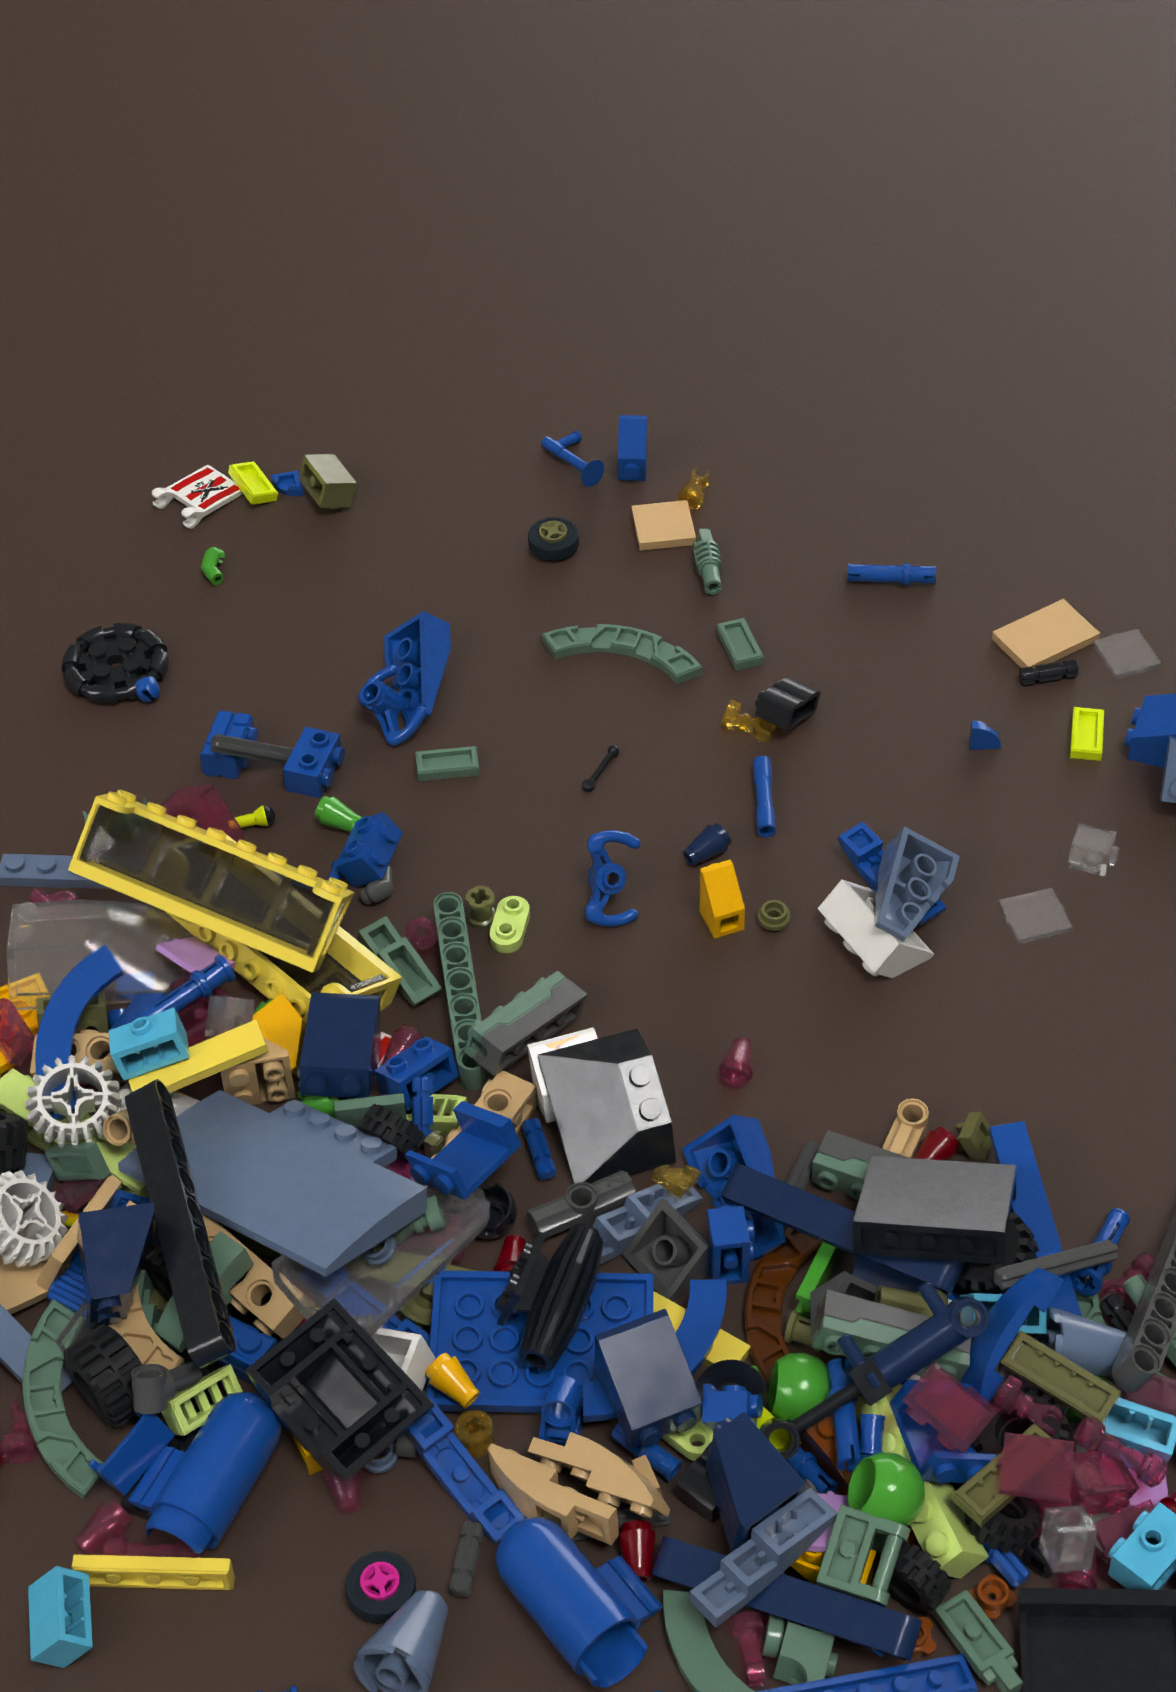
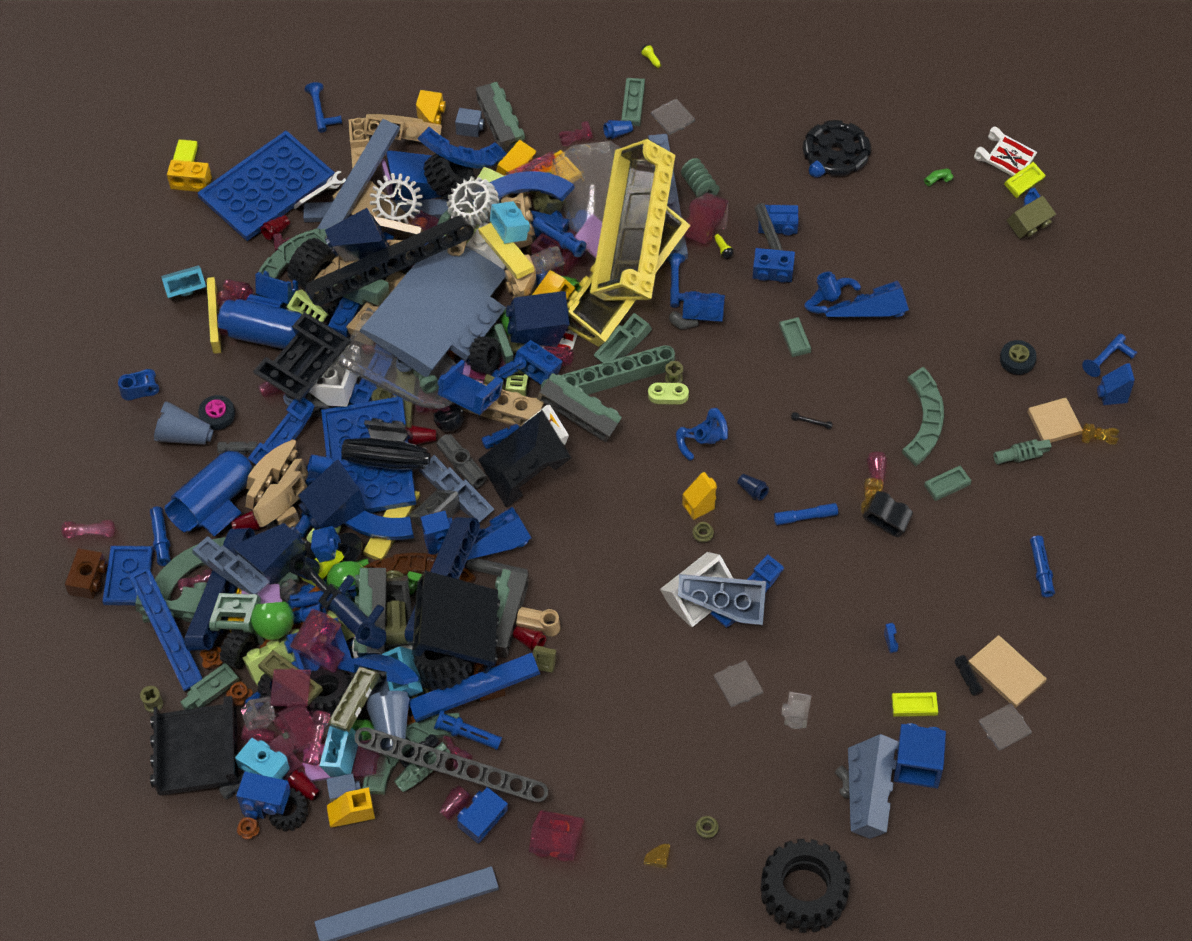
camera: 80 degrees right, 10 degrees up
(156, 1385) = (297, 279): dark grey axle -> none
(335, 814) = (734, 285): bright green cone -> none
(424, 941) = (641, 343): clear pink cone -> none
(451, 1379) = (331, 414): yellow cone -> none
(482, 1437) = (313, 440): clear yellow wheel -> none
(676, 1179) = (486, 505): clear yellow tile -> none
(701, 706) = (877, 465): none -> clear pink cone
(737, 1065) = (580, 526): clear pink cone -> none
(1011, 1398) = (338, 676): clear pink piece -> none
(1058, 1263) = (432, 693): dark grey axle -> none

